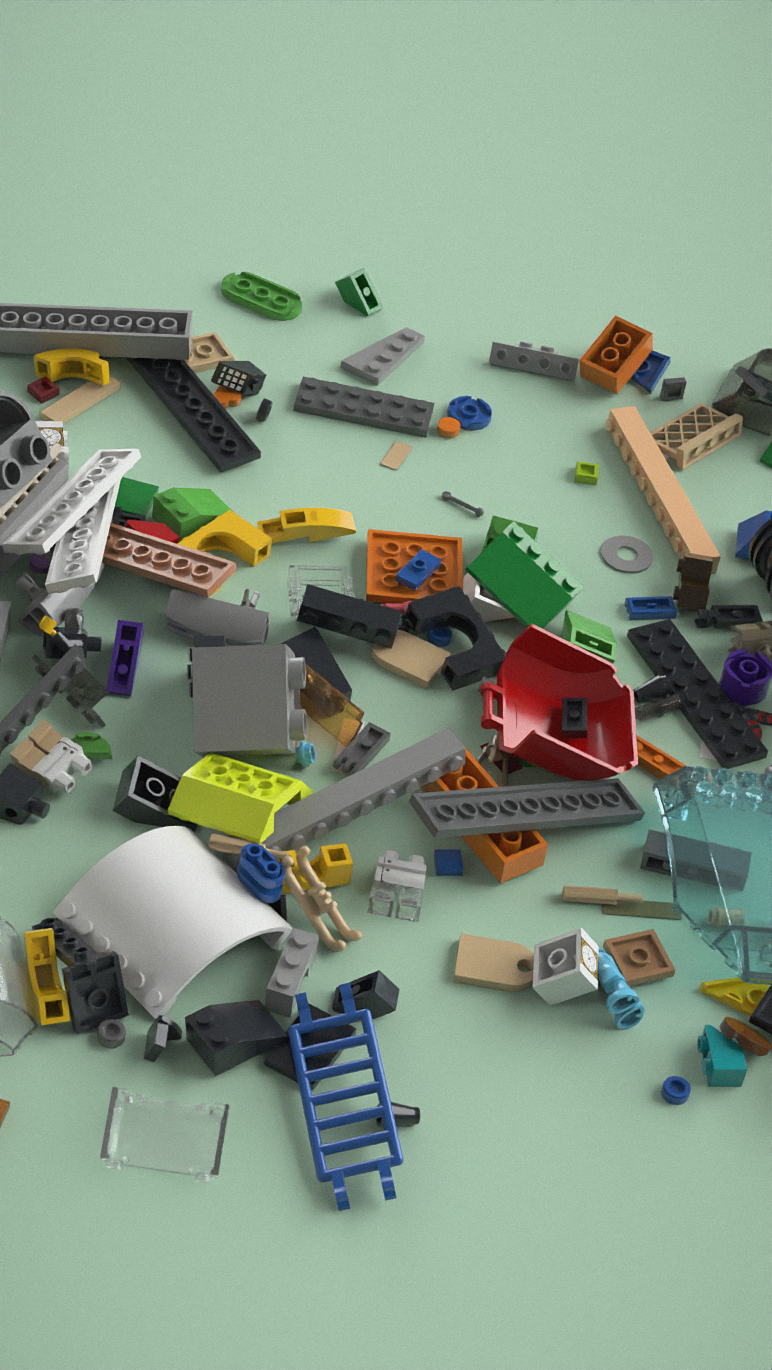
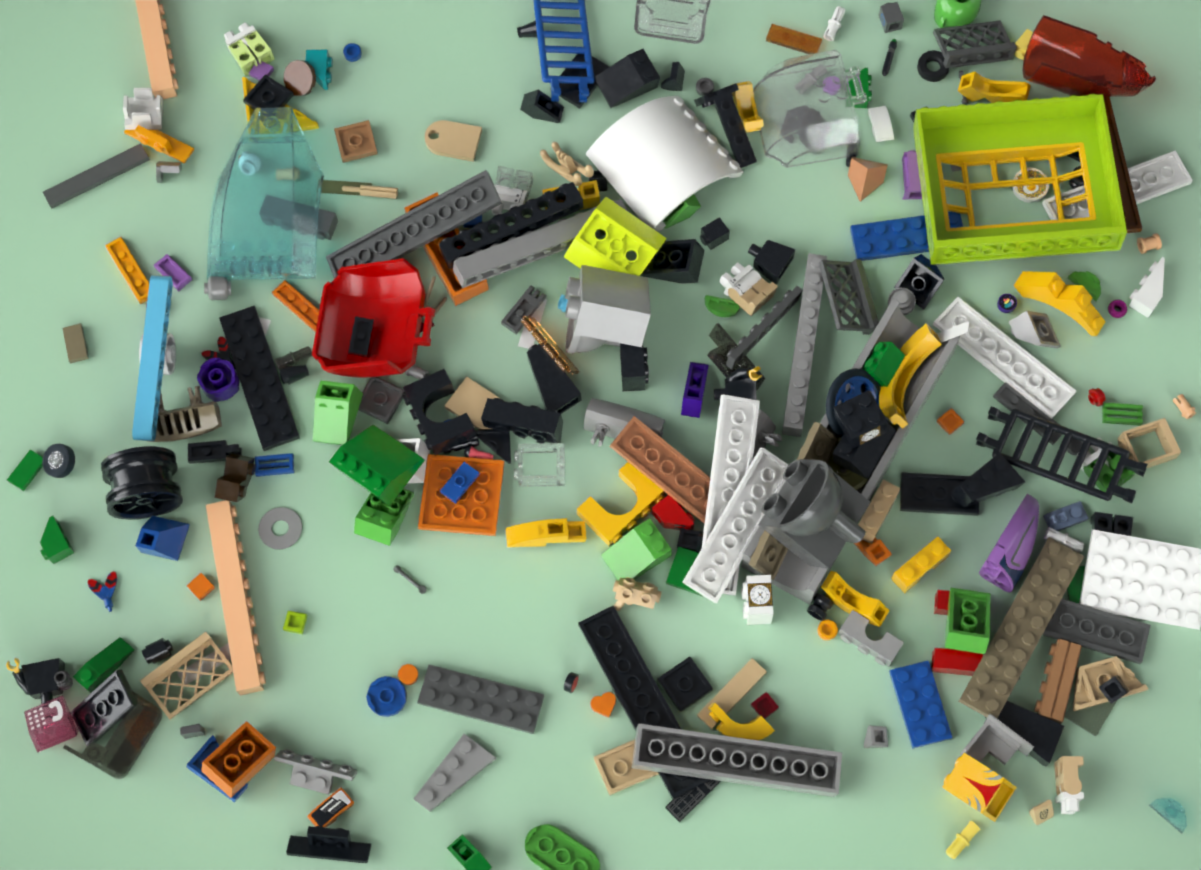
camera: 165 degrees left, 25 degrees up
(97, 829) = (714, 233): none -> black brick
(134, 410) = (685, 684): none -> black tile
(200, 471) = (634, 592): none -> tan brick
(234, 846) = (624, 203): tan axle -> none
(239, 376) = (589, 717): black slope -> none
(261, 873) = (606, 176): blue brick -> none
(289, 973) = (591, 115): light grey arch -> none
(383, 808) = (539, 218): none -> black brick
(396, 455) = (458, 640): tan sticker -> none
(505, 306) = (329, 845): none -> black bracket
(510, 331) = (331, 808): none -> slope
(565, 967) = (409, 118): white brick -> none
(620, 998) = (378, 114): medium azure piece -> none
(704, 504) = (200, 586): none -> orange tile
(733, 449) = (157, 651): none -> black brick

